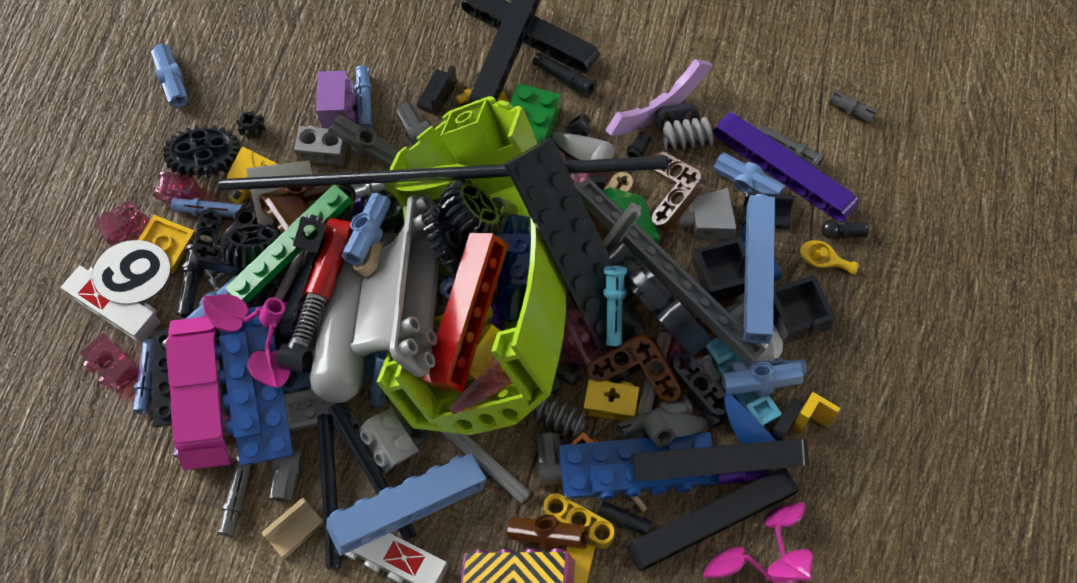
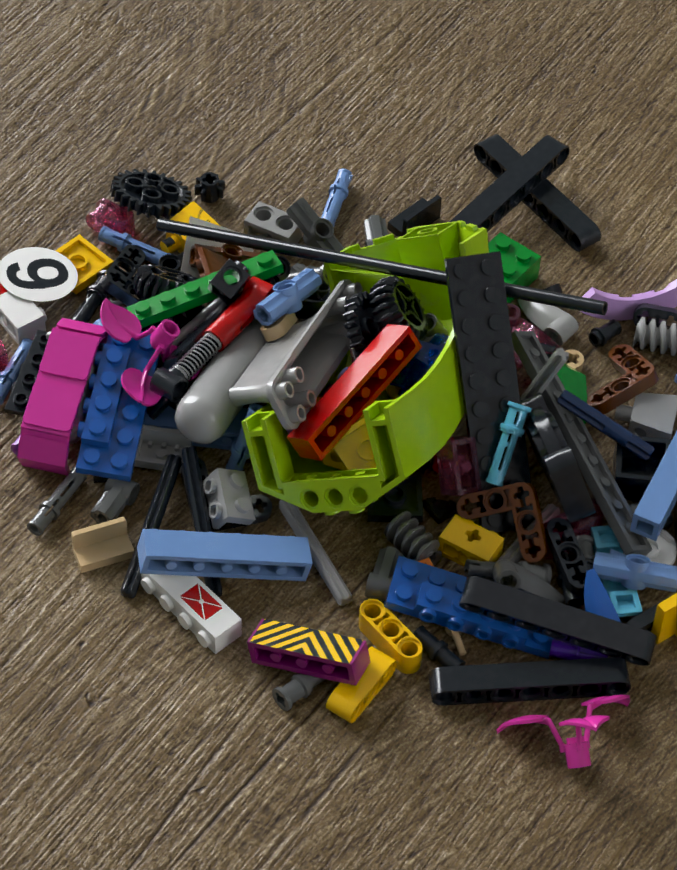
camera: 15 degrees right, 15 degrees down
(119, 223) = (41, 232): clear pink piece -> none
(169, 75) = (146, 119): medium blue piece -> none
(334, 97) = (308, 181): medium lavender piece -> none
(481, 388) = (340, 461): clear pink piece -> none
(548, 532) = (355, 625): reddish brown piece -> none
(573, 78) = (562, 250): black pin -> none
(684, 247) = (605, 425): none -> dark blue axle

